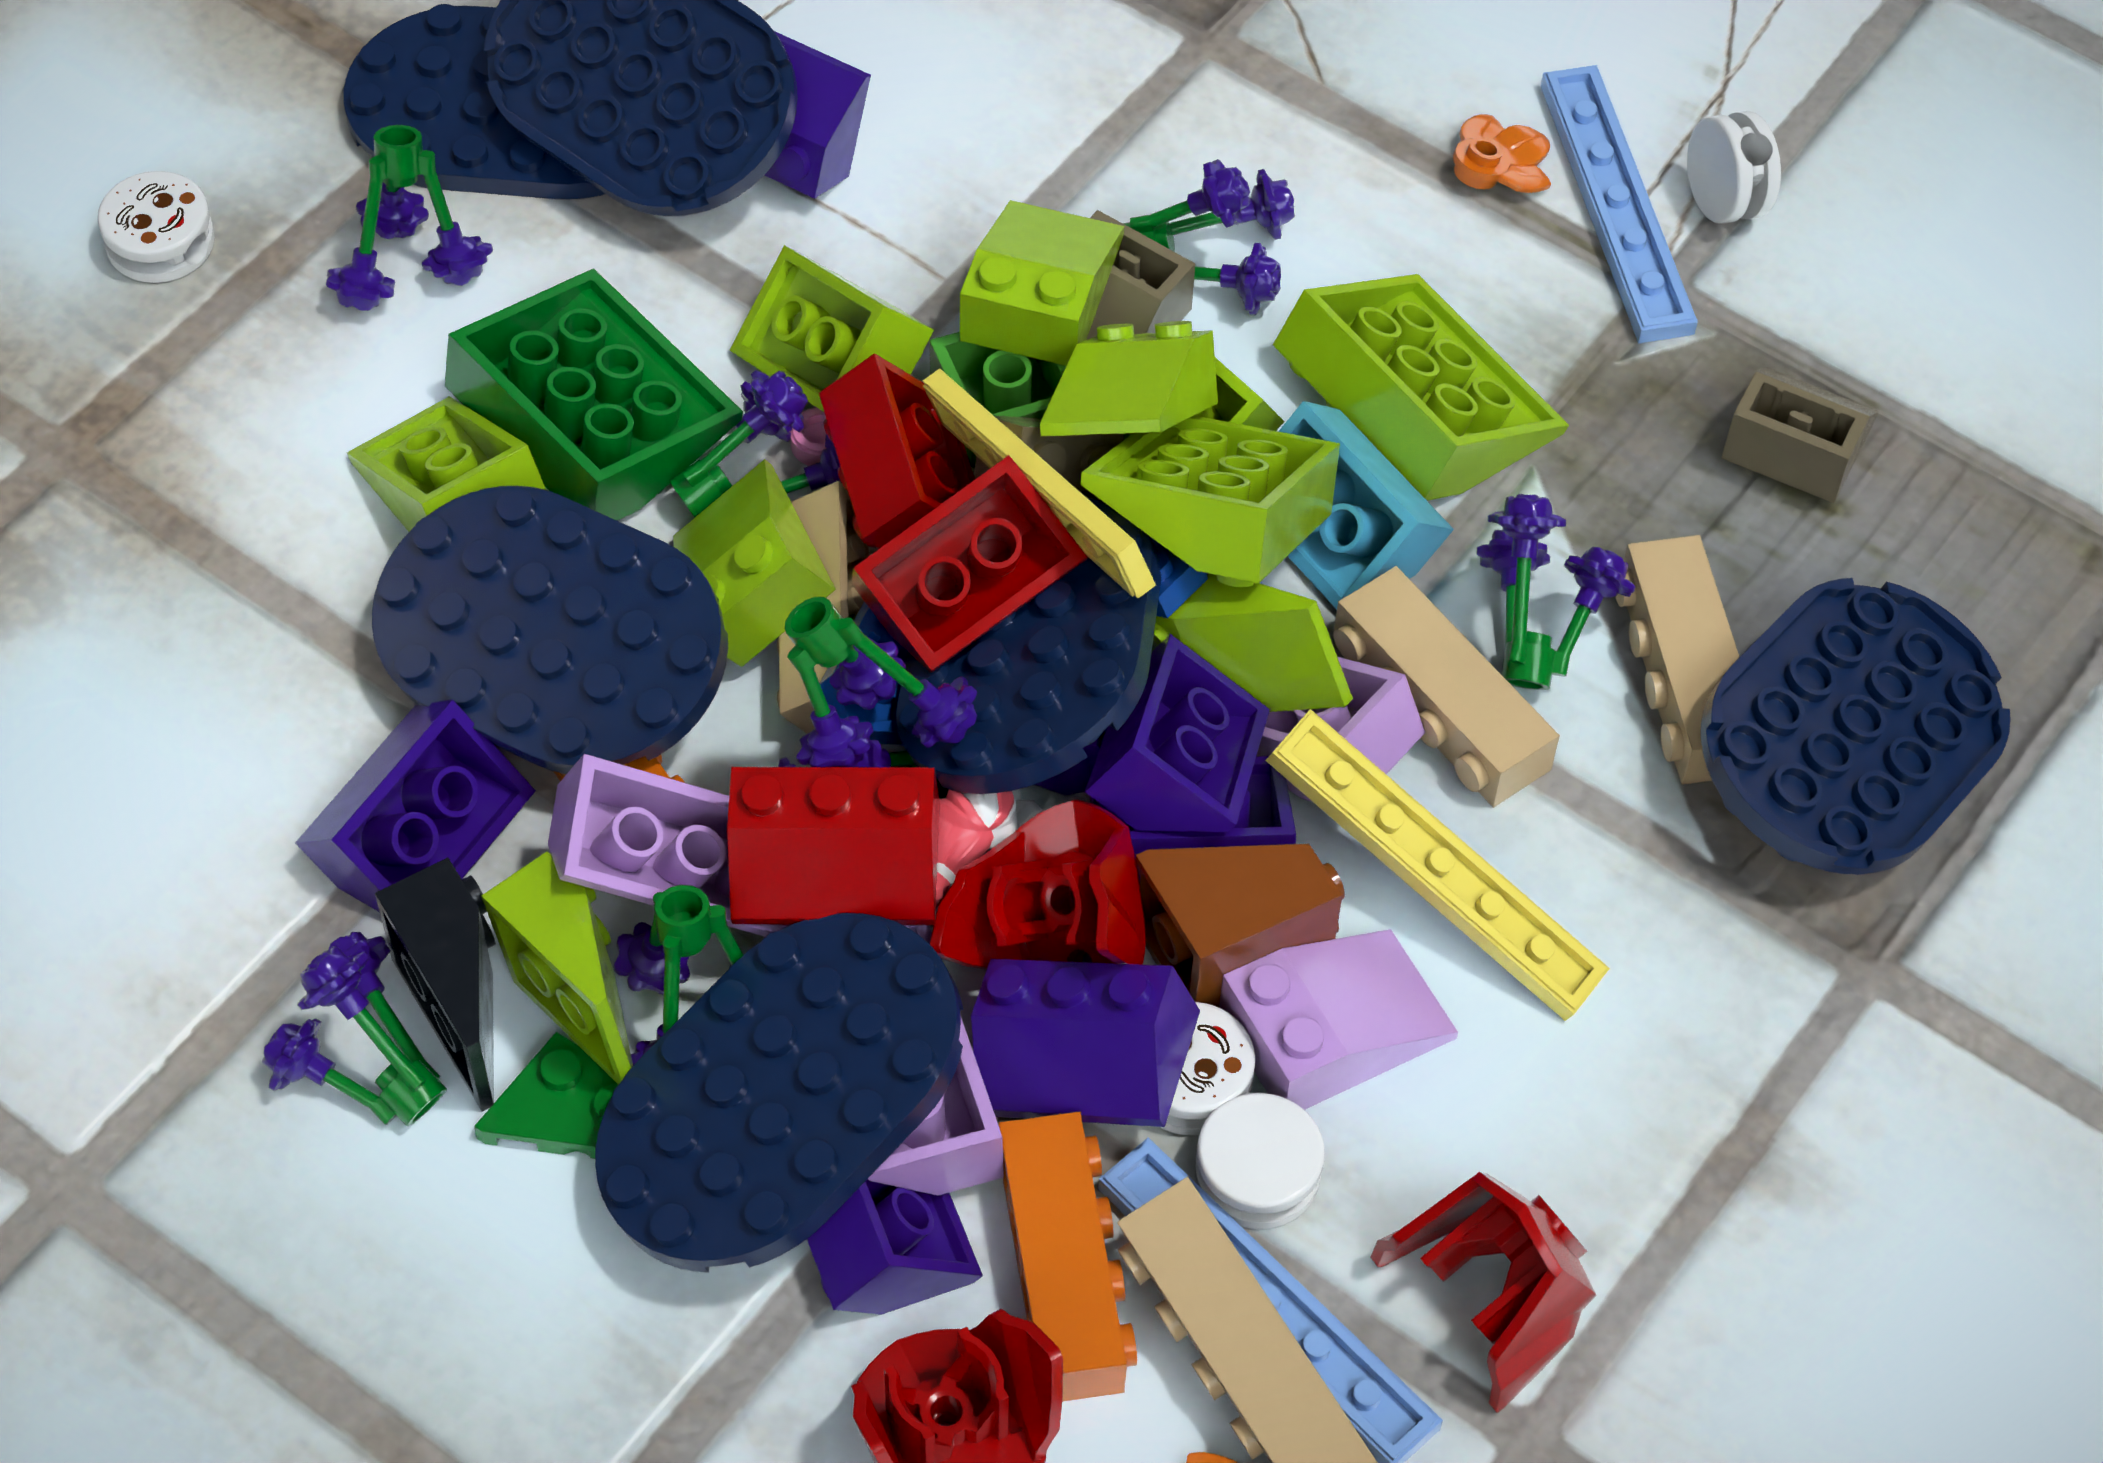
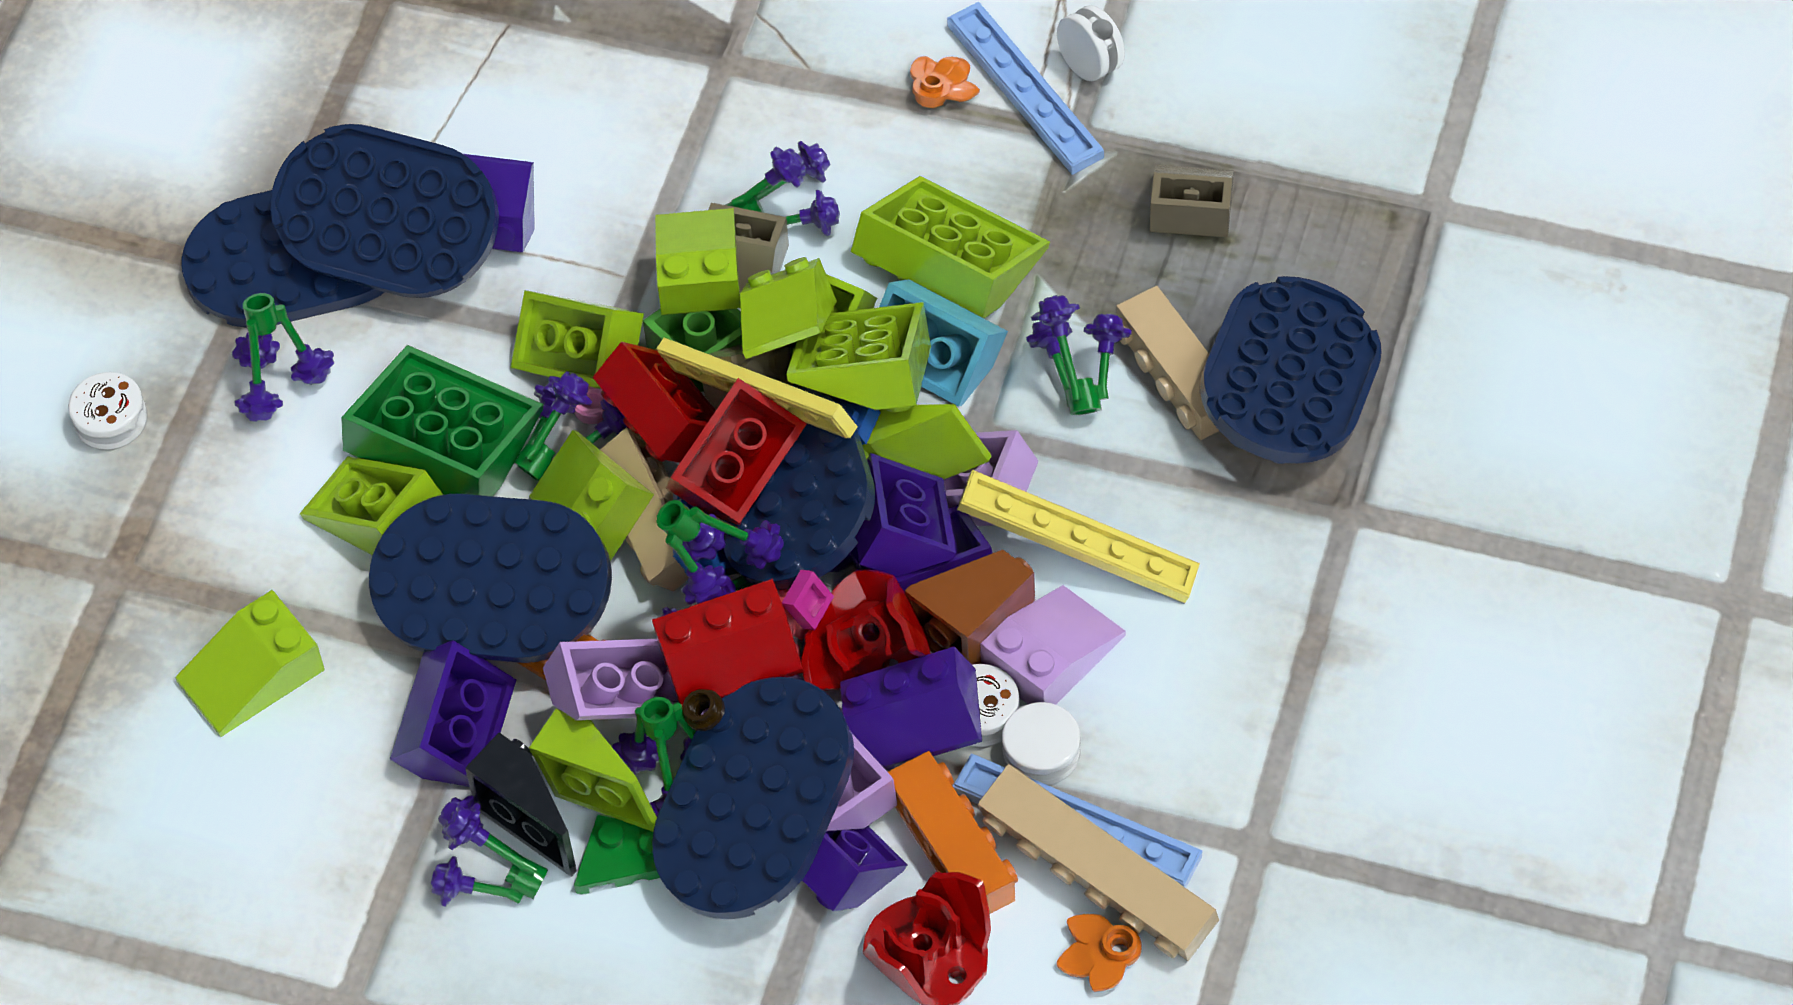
camera: 15 degrees left, 0 degrees up
(173, 638) = (250, 664): none -> lime slope
(754, 916) = (699, 701): none -> dark brown plate
(980, 818) = (807, 599): none -> dark pink plate
(1461, 698) = (1055, 434): tan brick -> none
(1543, 1284) = (1232, 754): red piece -> none

